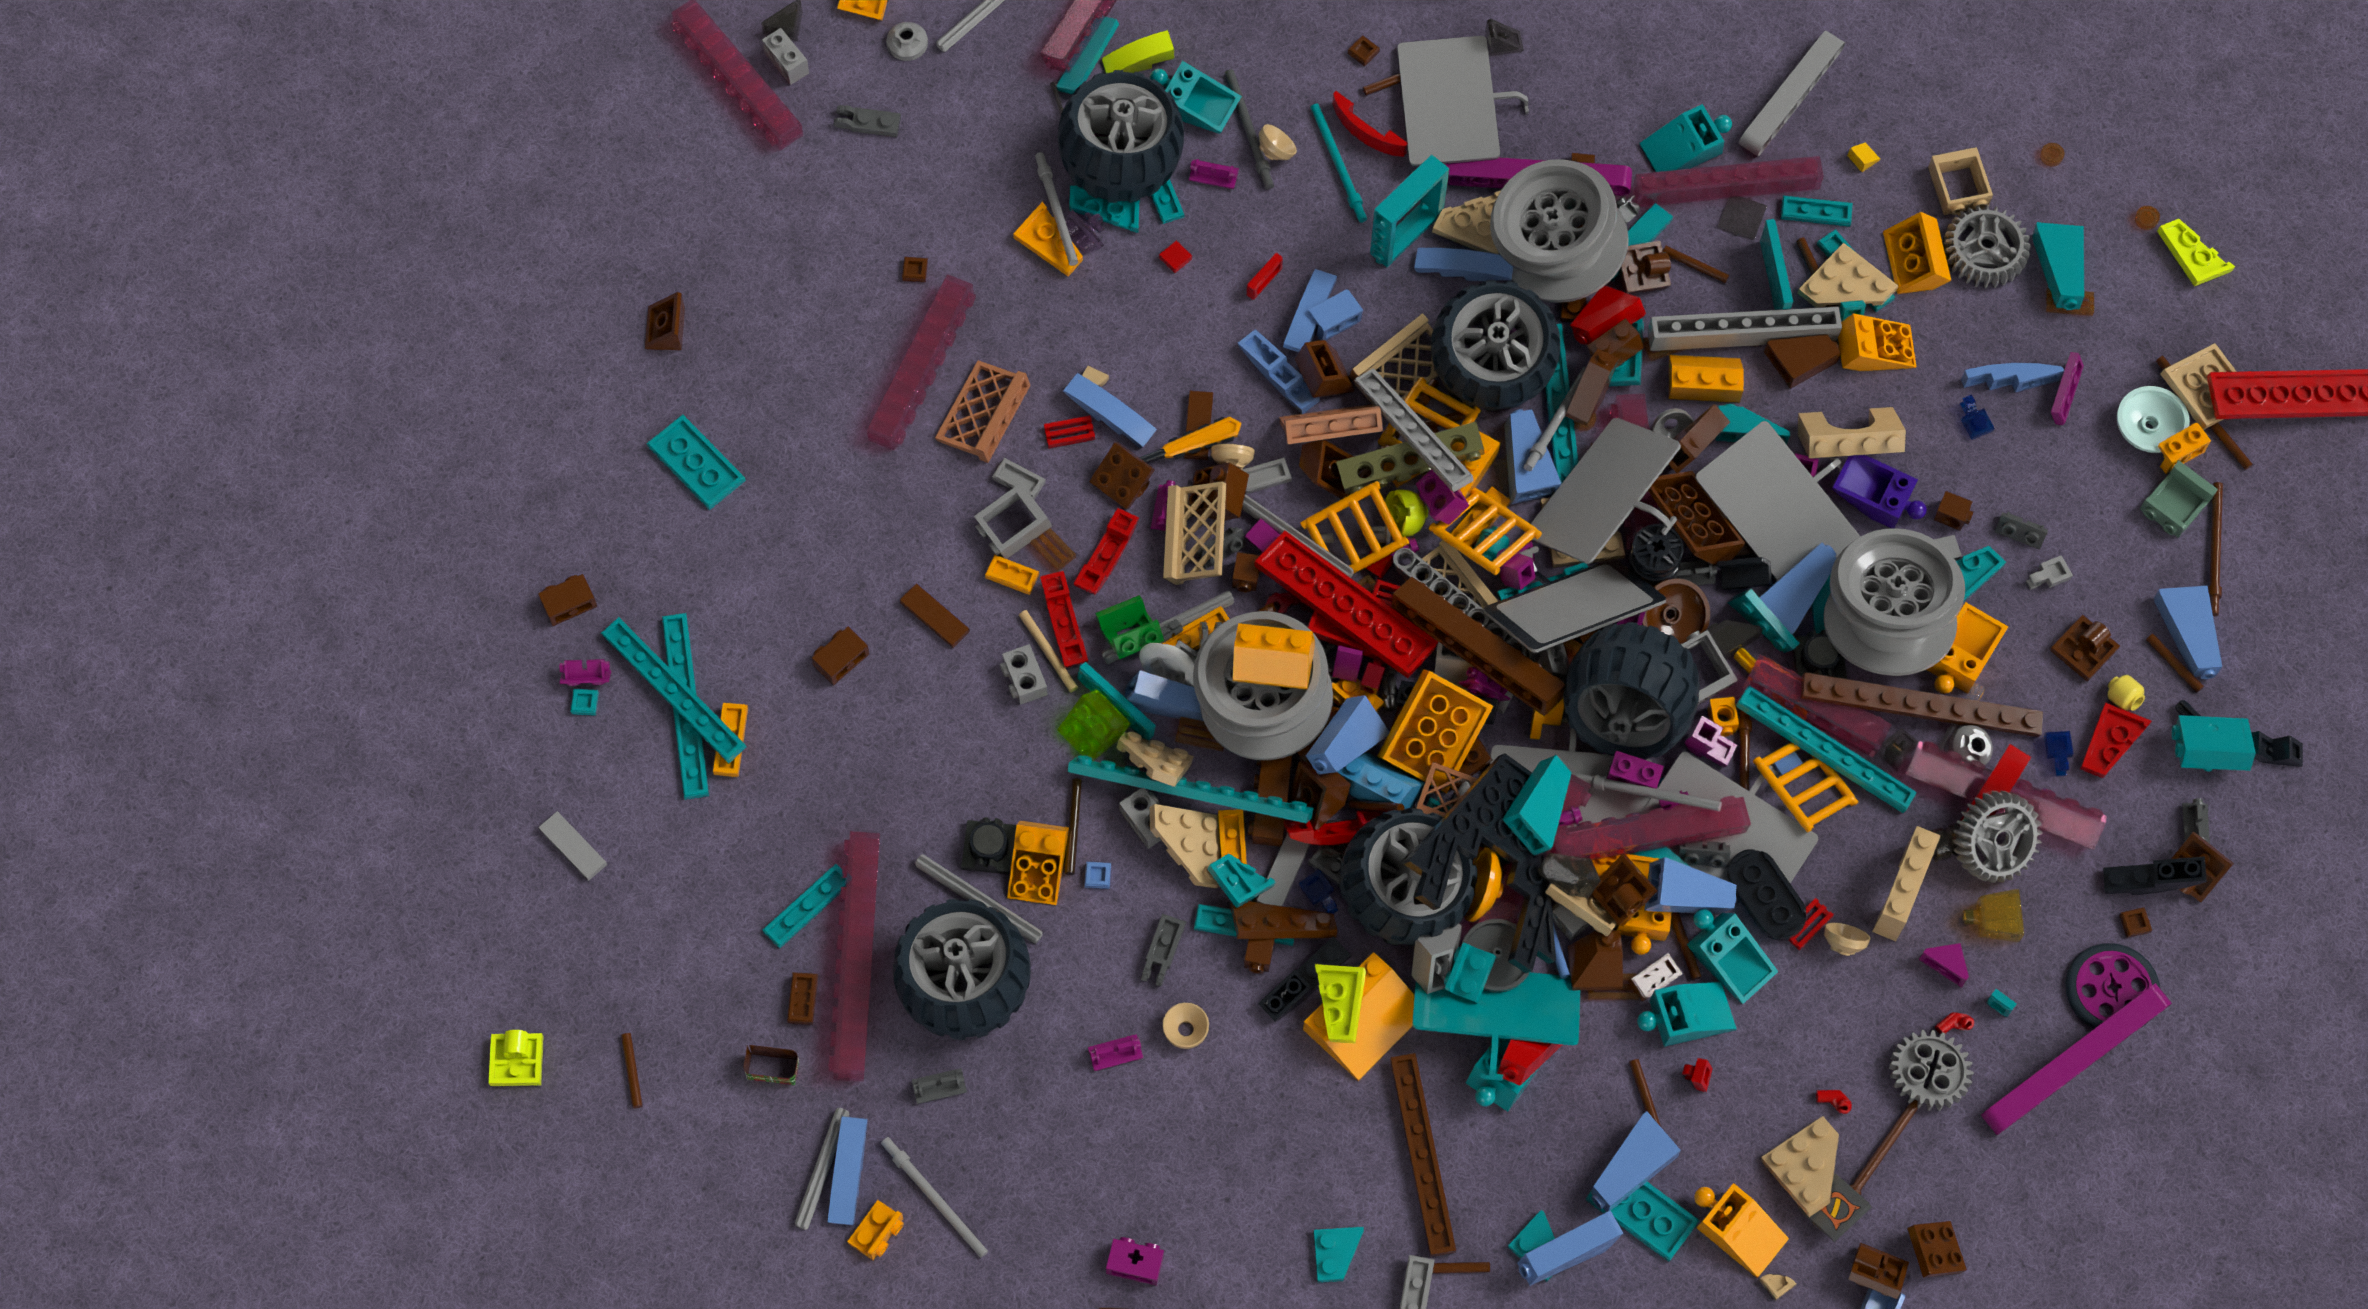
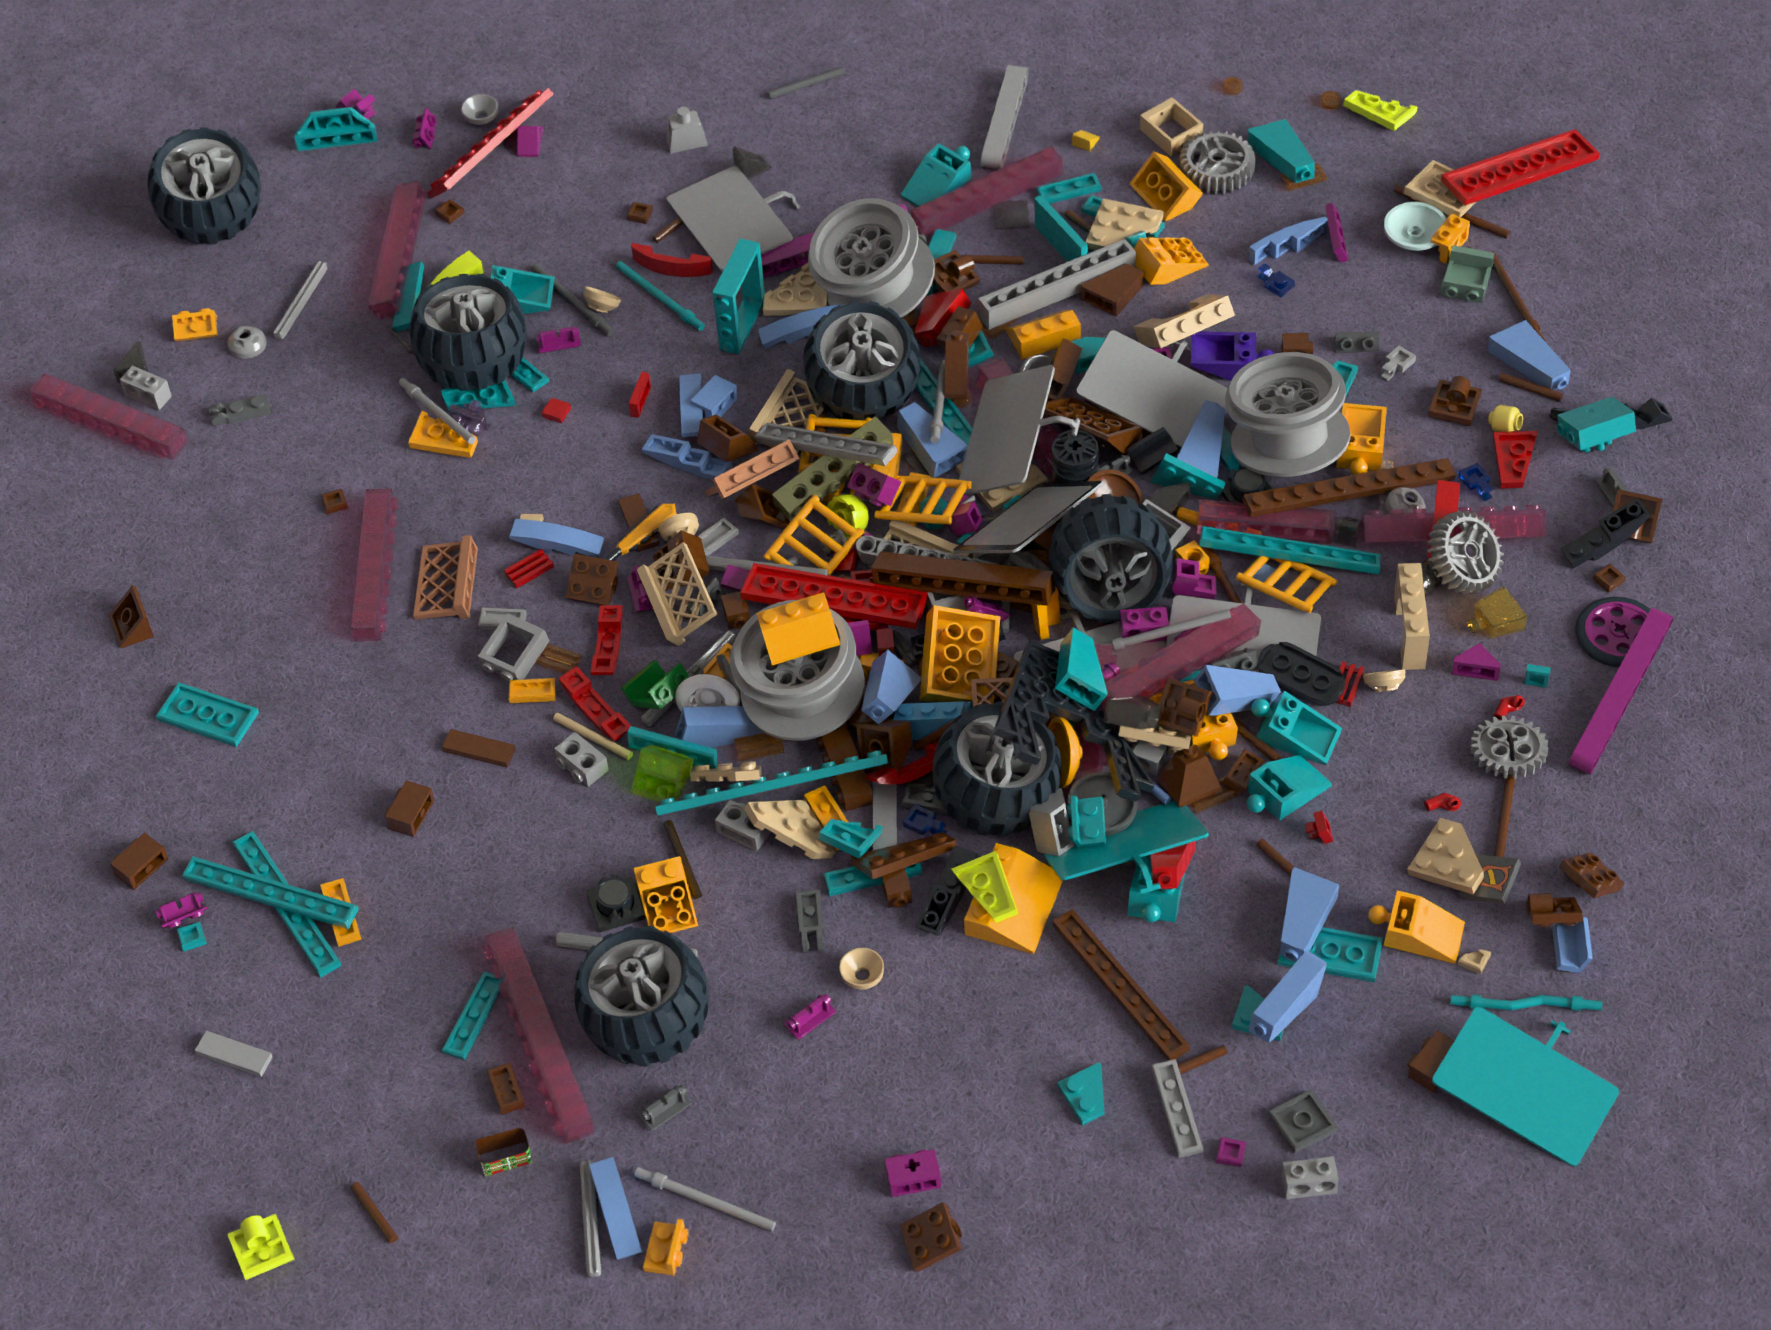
camera: 20 degrees left, 15 degrees down
(1097, 875) = (723, 887): medium blue tile -> none

